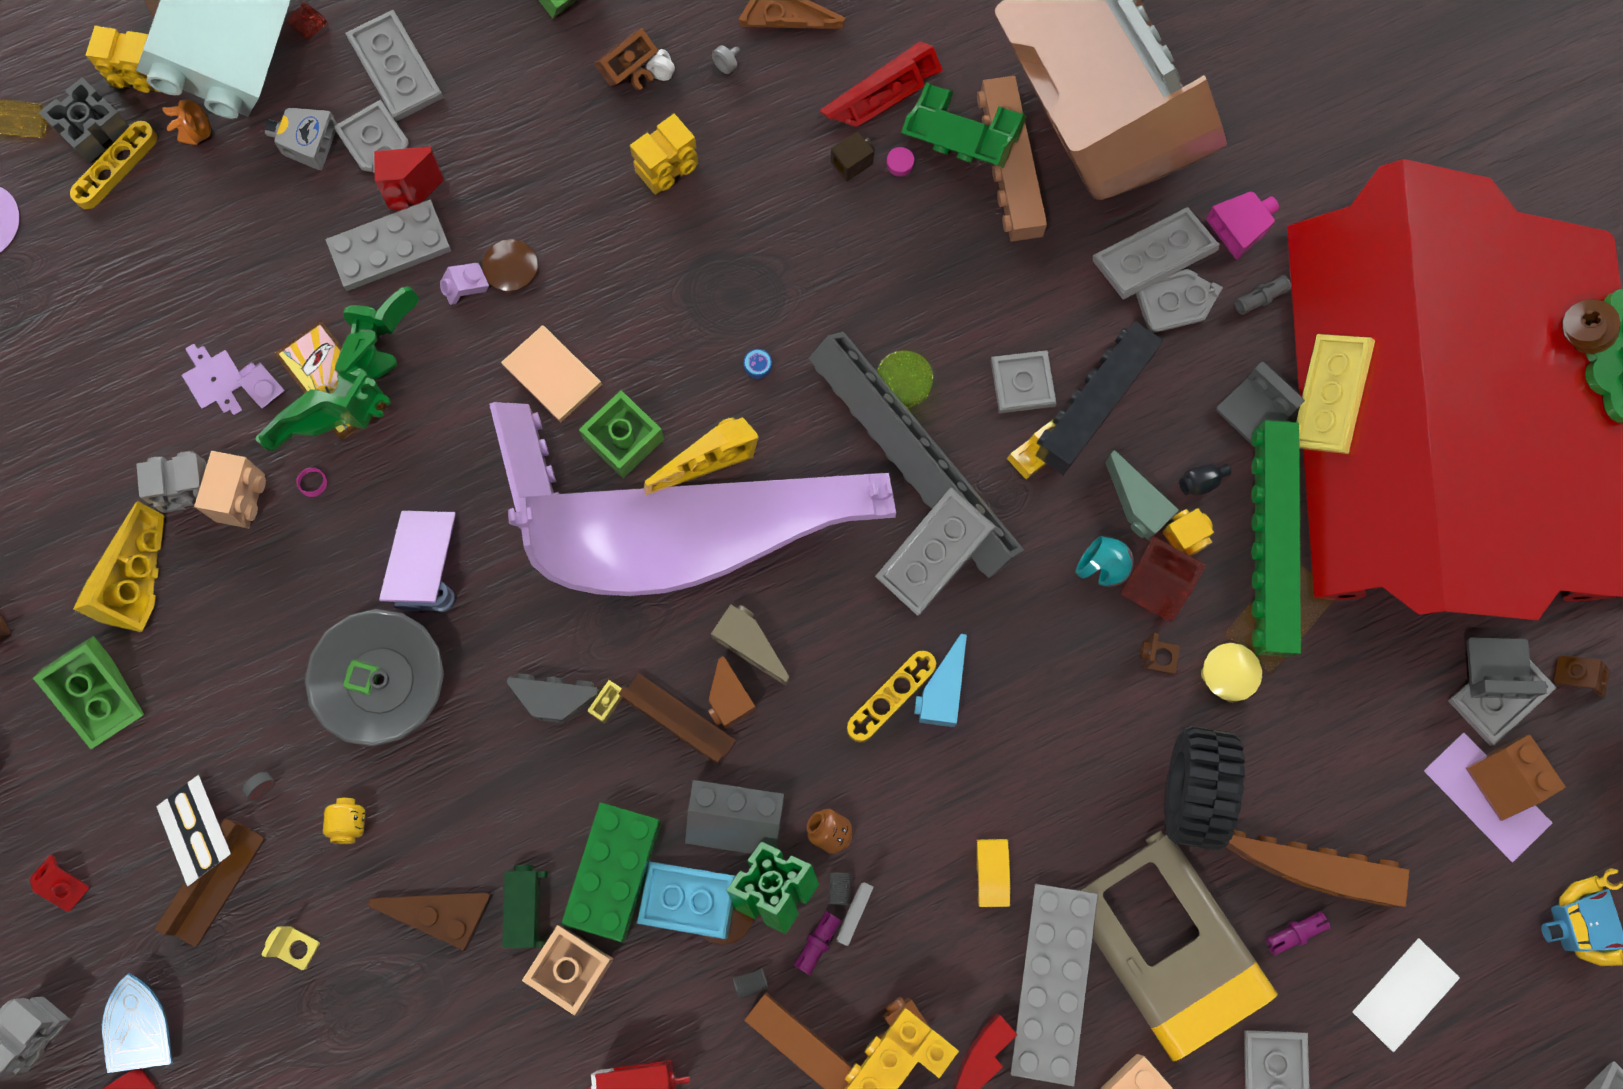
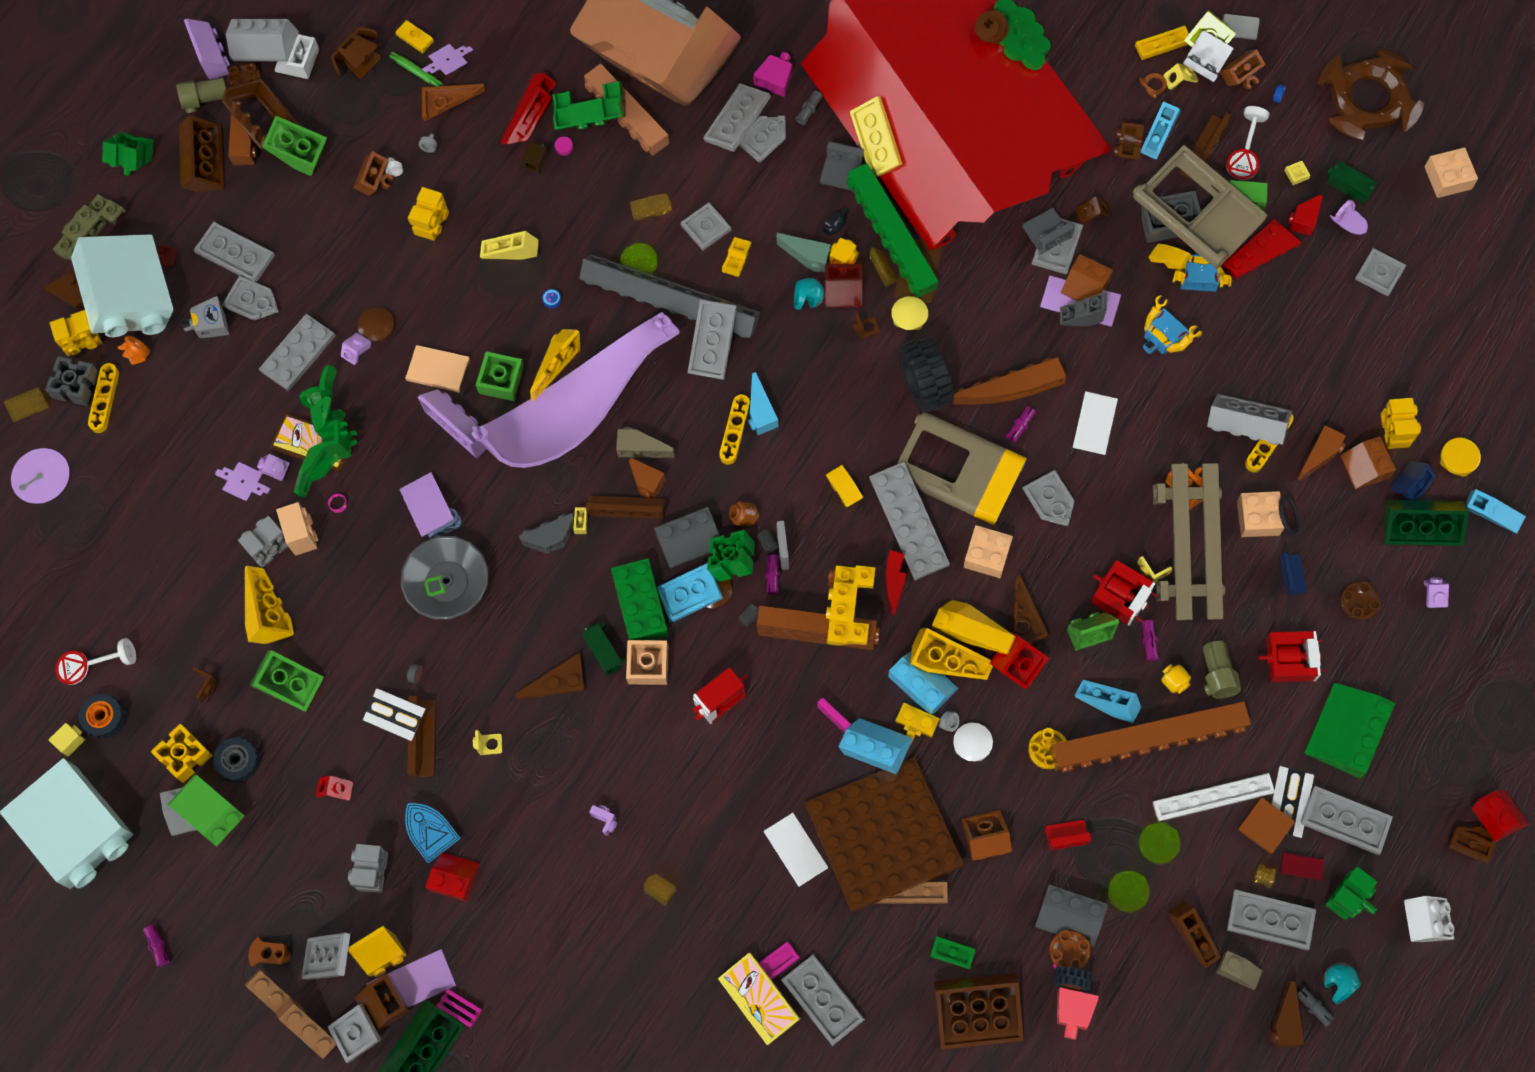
camera: 25 degrees left, 5 degrees down
(344, 821) = (475, 662): yellow head -> none
(406, 176) = (286, 306): red slope -> none
(746, 261) = (511, 246): none -> light yellow slope
(965, 311) = (649, 206): none -> clear yellow slope
(1099, 397) = (752, 210): black brick -> none
(1232, 582) = (882, 267): none -> clear yellow slope
(1489, 823) = (1084, 312): none -> dark grey slope

